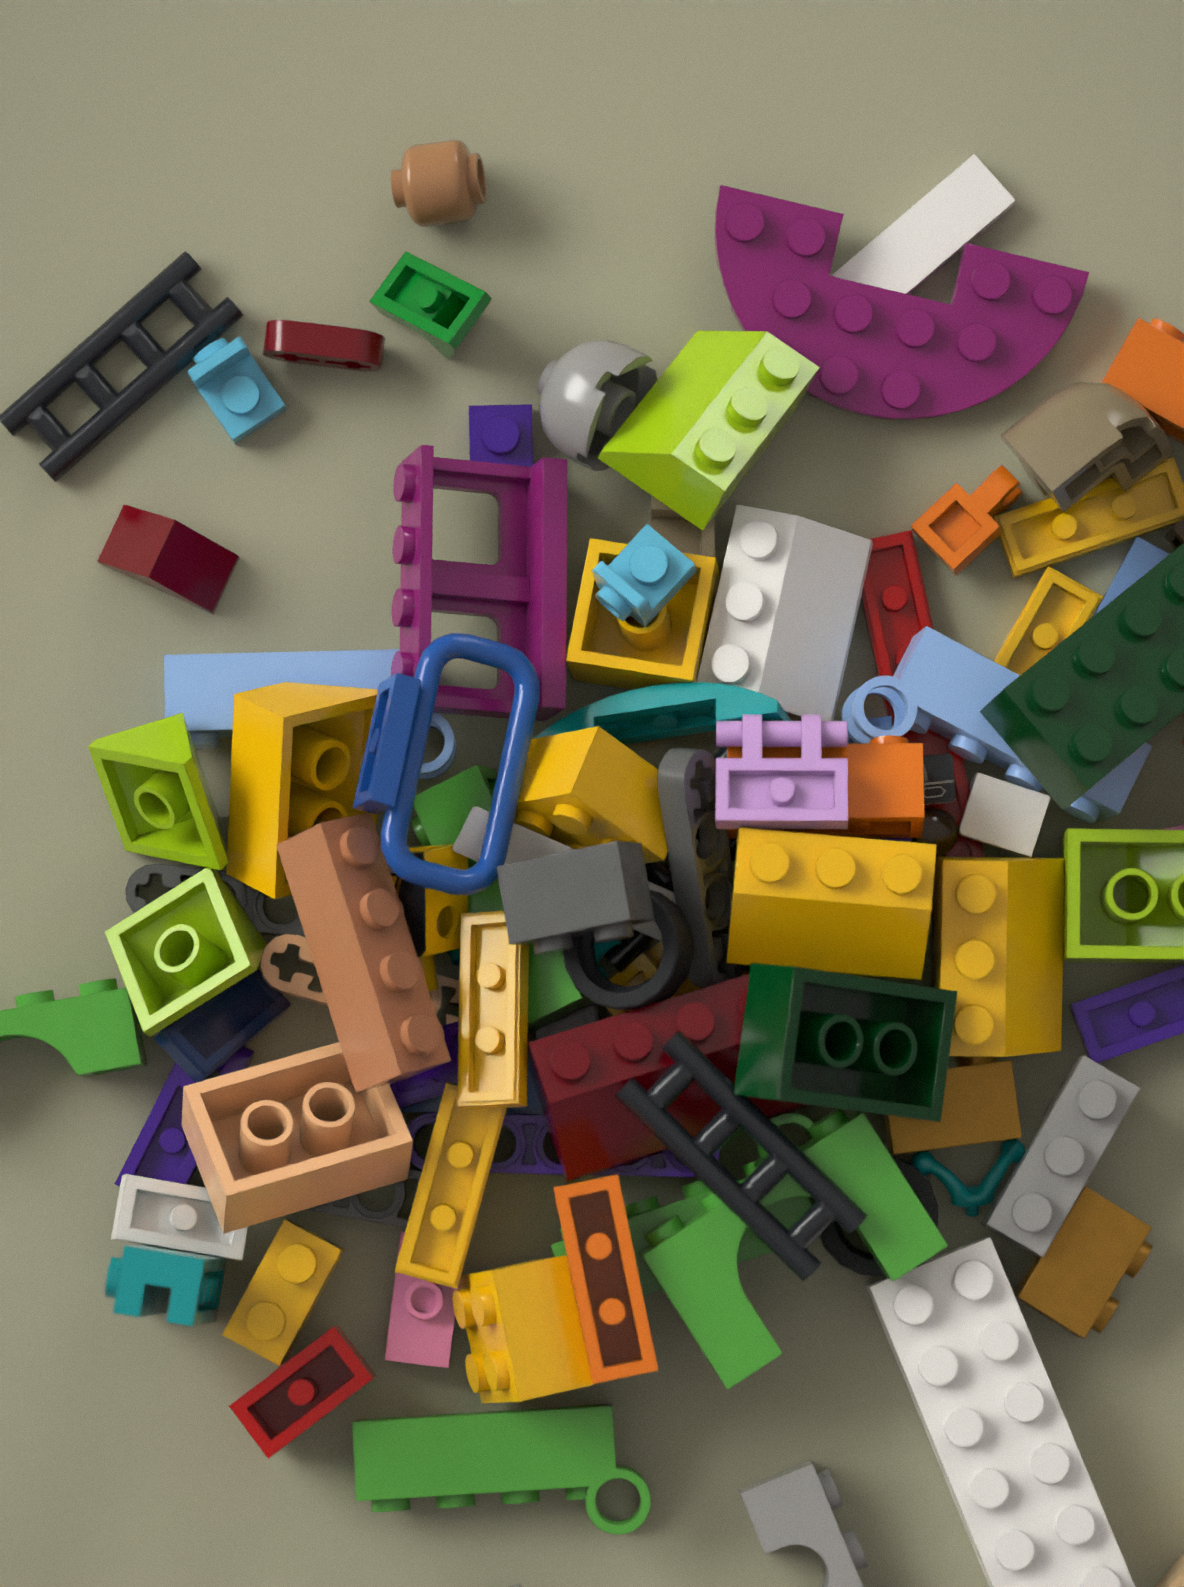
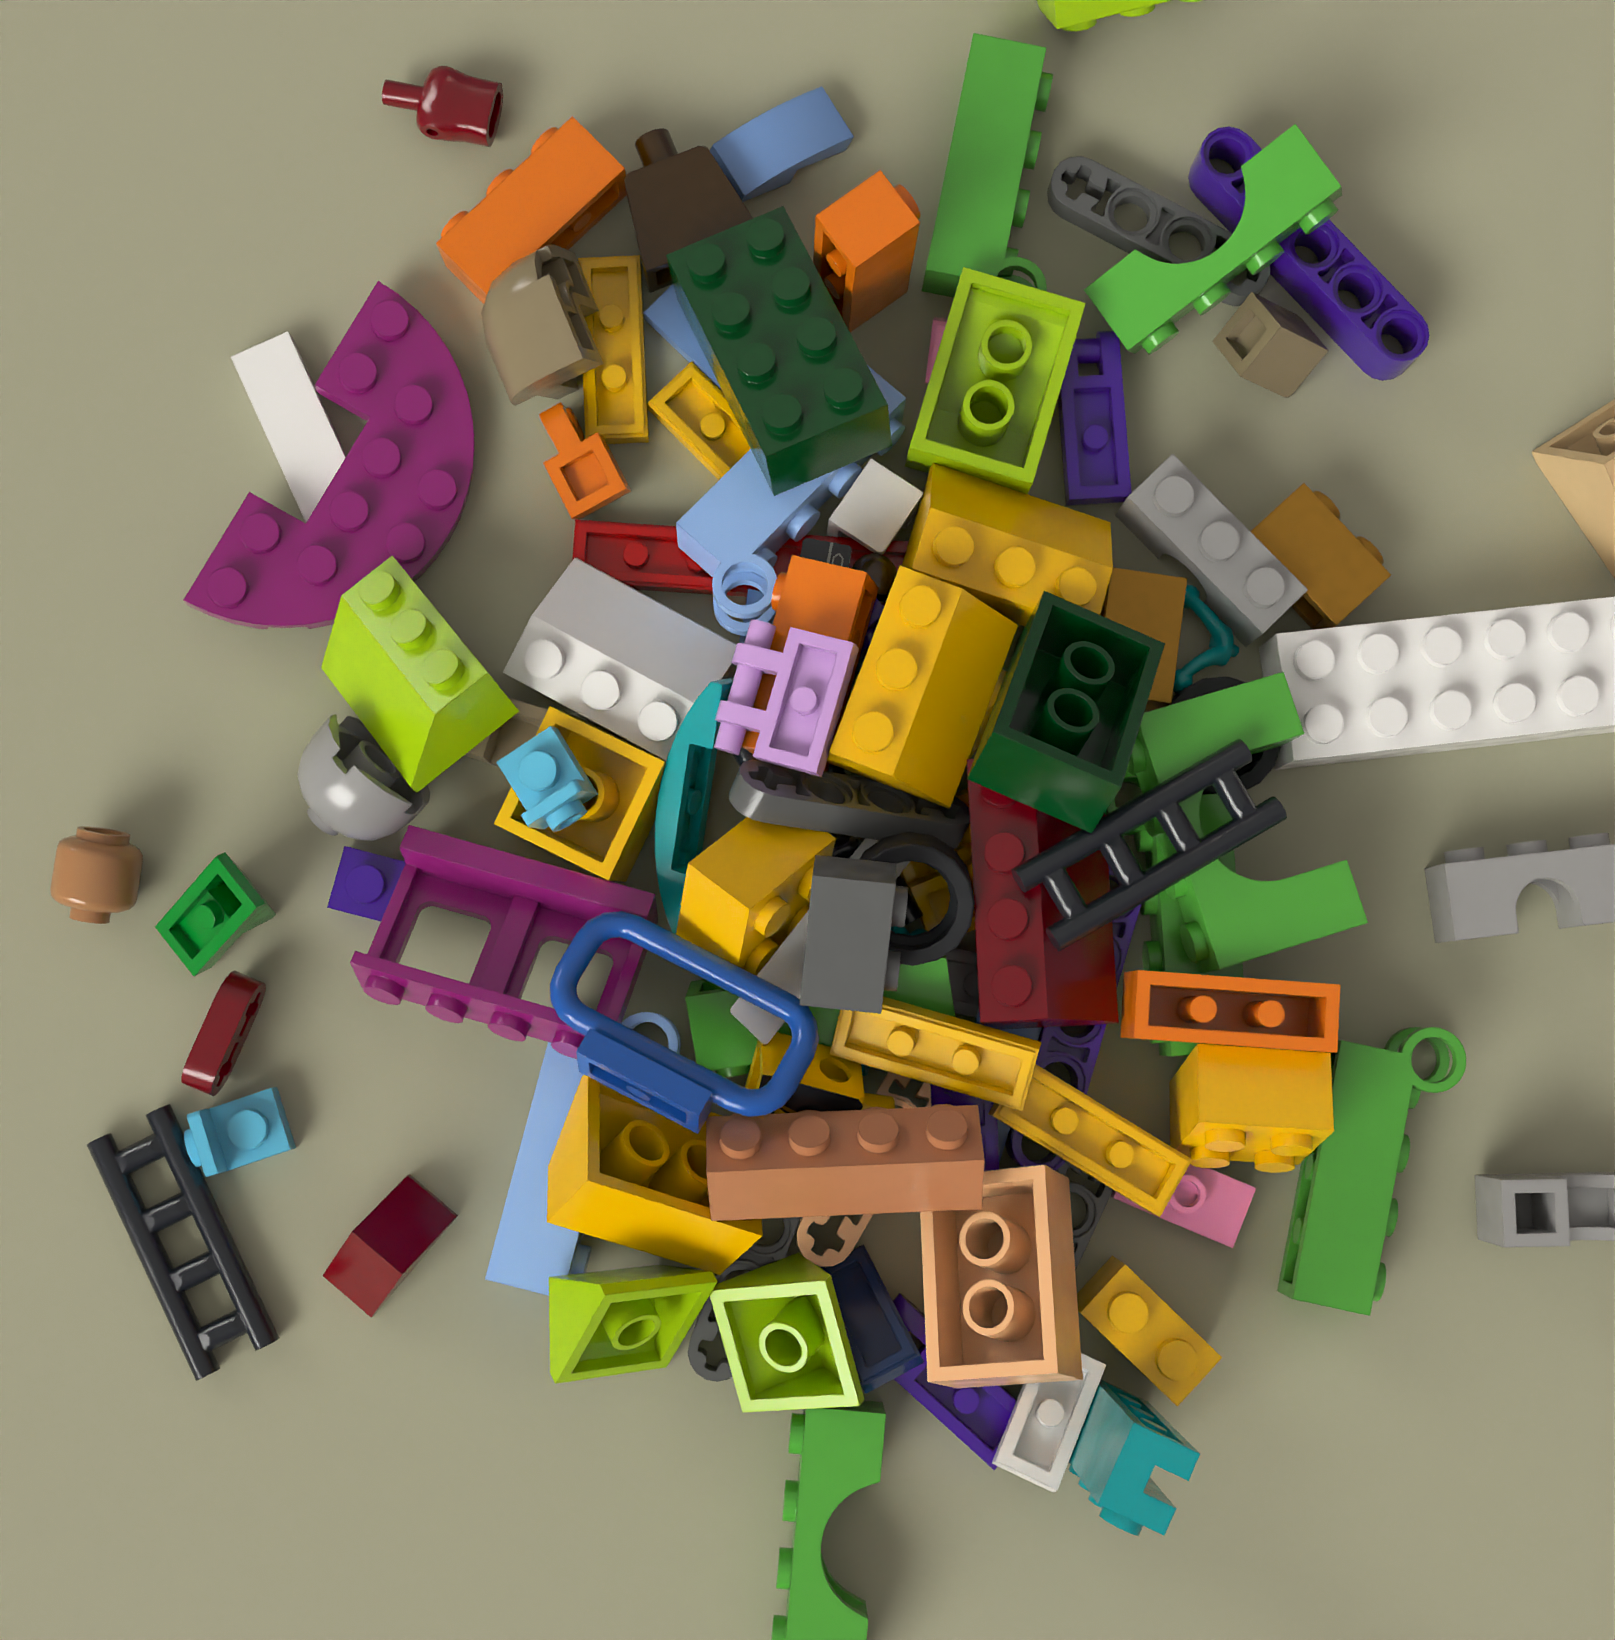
camera: 85 degrees left, 0 degrees up
(302, 1391) = (1250, 1338): red brick -> none

